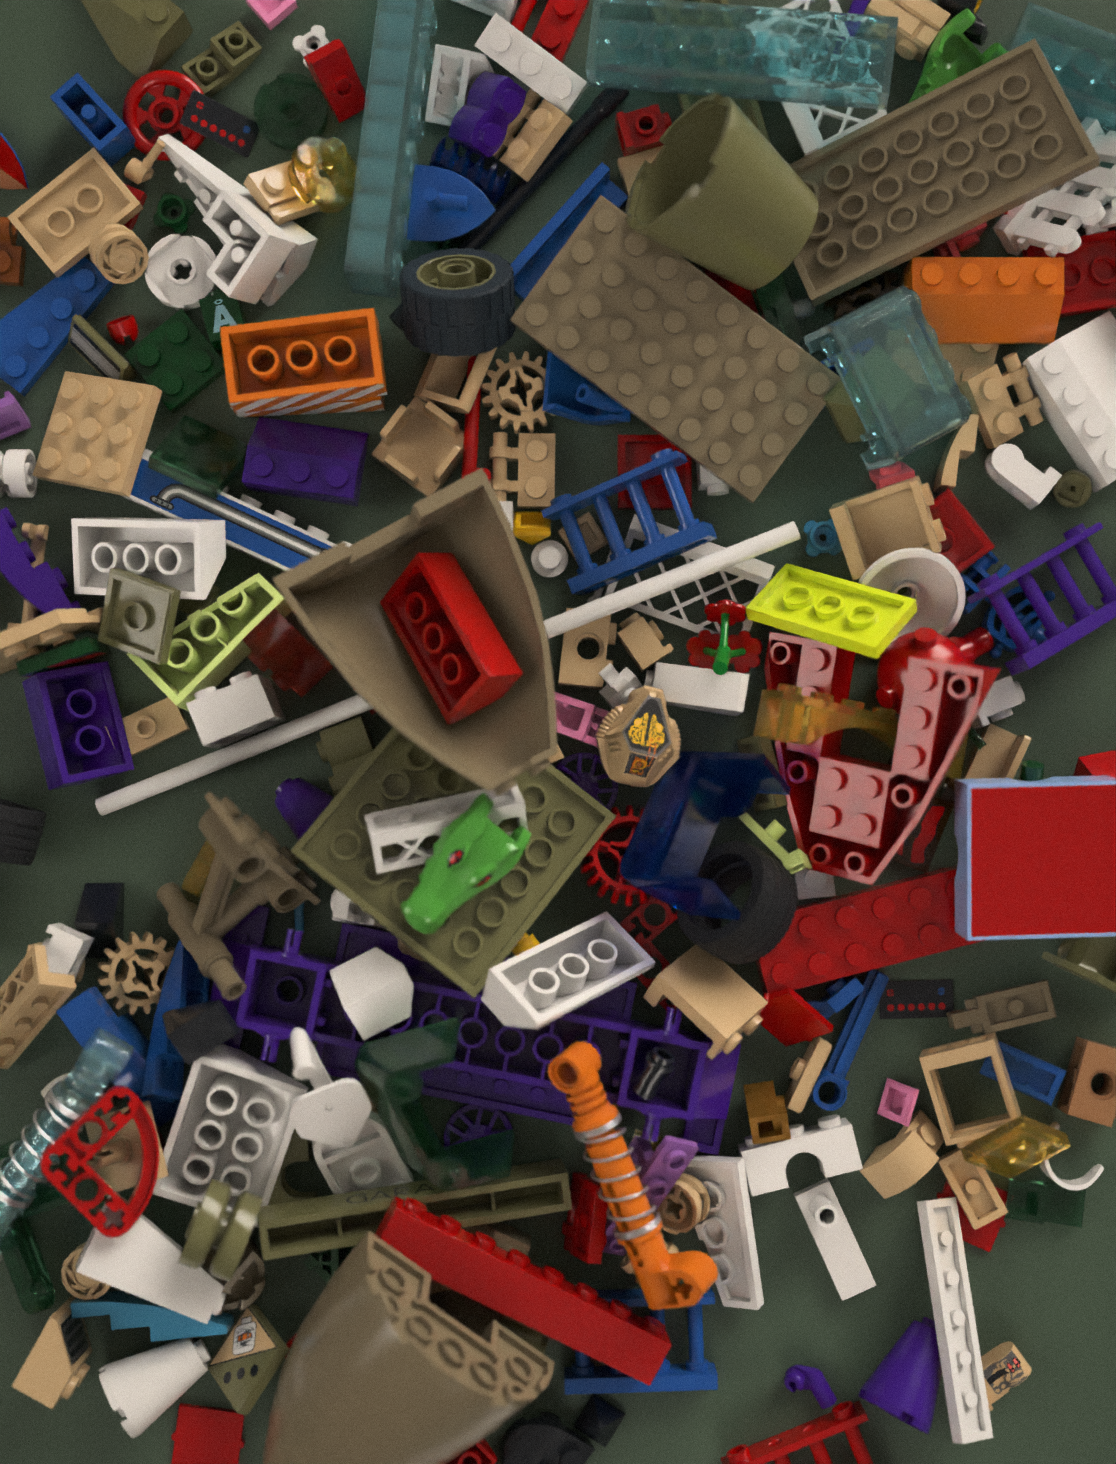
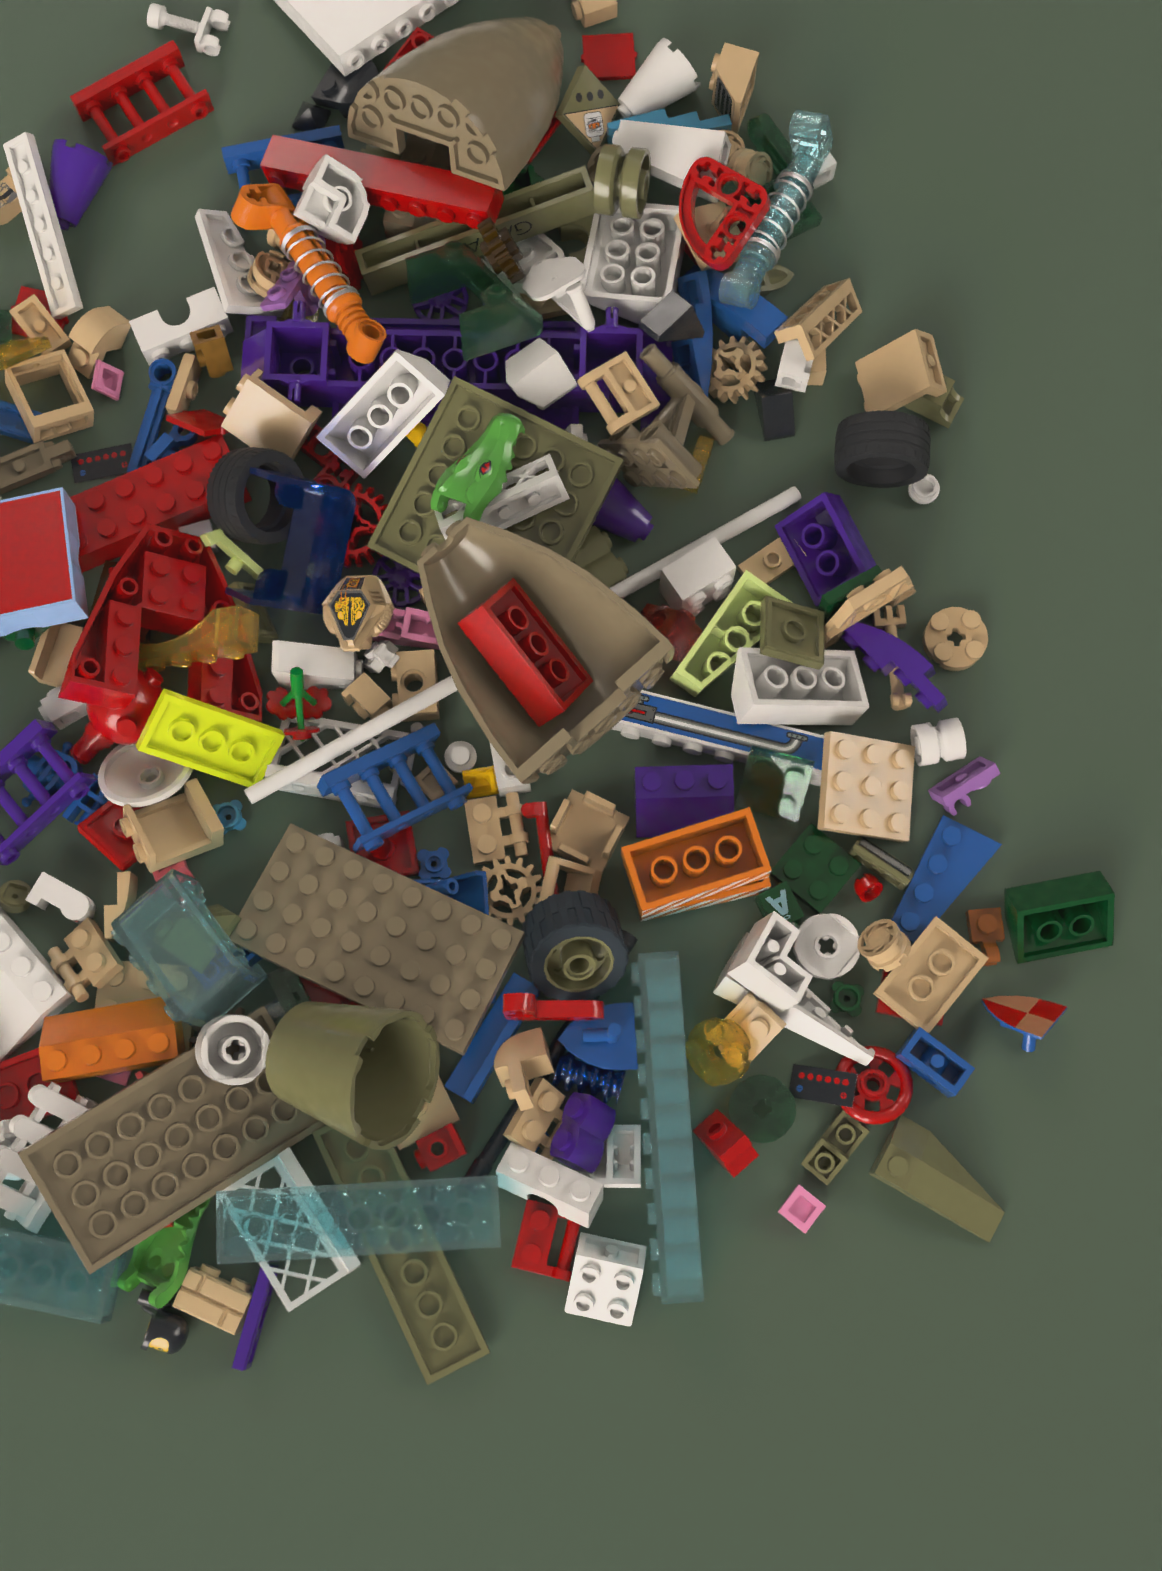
camera: 170 degrees right, 10 degrees down
(61, 1235) = (752, 165): none -> tan wheel
(142, 170) = (885, 1030): tan hand -> none
(267, 943) = (627, 388): none -> tan plate
(304, 43) = (754, 1184): white plate -> none
(388, 1158) = (501, 250): none -> dark brown gear
(523, 236) = (526, 1007): none -> red beam
(539, 198) = (522, 1059): none -> tan brick
(585, 1265) = (333, 201): none -> white brick
(607, 448) = (427, 857): none -> blue plate
(658, 1064) = (300, 354): black pin -> none
(810, 1379) = (151, 173): dark purple arm -> none
(834, 1239) = (145, 274): white piece -> none
(852, 243) = (245, 1064): none -> white brick

